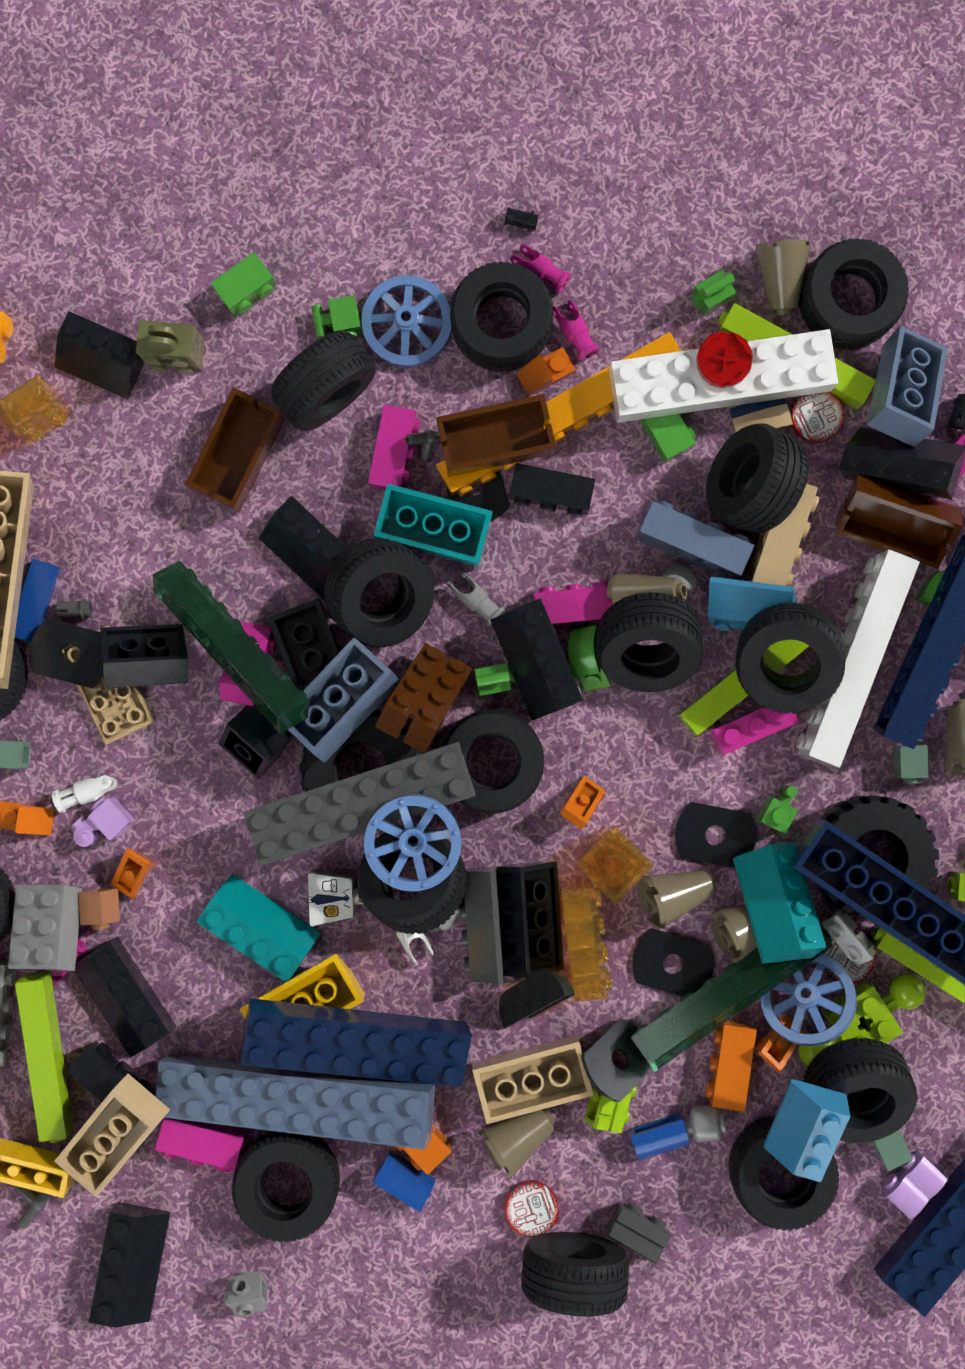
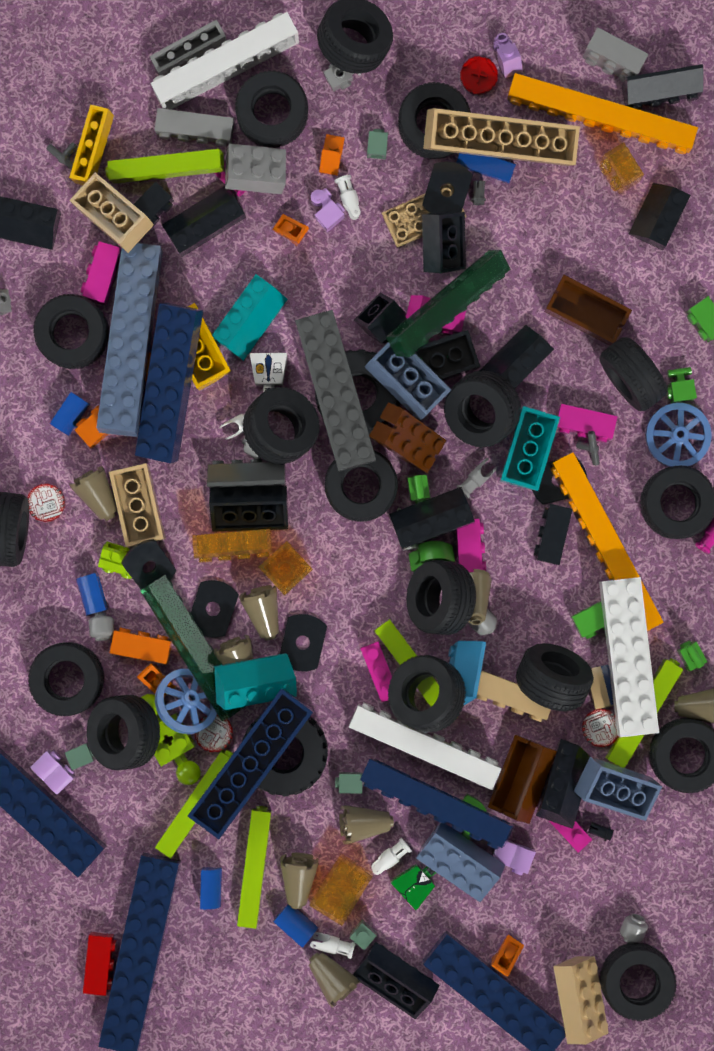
camera: 90 degrees right, 0 degrees up
(99, 907) = (267, 206): nougat brick -> none
(170, 346) = (663, 266): olive brick -> none
(413, 850) = (302, 423): medium blue wheel -> none
(496, 435) = (591, 494): reddish brown piece -> none
(533, 996) = (195, 508): pearl dark grey brick -> none
(545, 371) = (639, 533): orange slope -> none
(577, 332) = (665, 557): dark pink piece -> none
(582, 802) = (329, 548): orange slope -> none
(637, 1232) = (27, 576): dark grey brick -> none
(694, 541) = (512, 633): sand blue brick -> none
(724, 359) = (638, 656): red tile -> none
(777, 812) = (317, 686): bright green brick -> none
(807, 1128) = (101, 690): dark azure slope -> none
(856, 946) = (234, 727): white hinge -> none

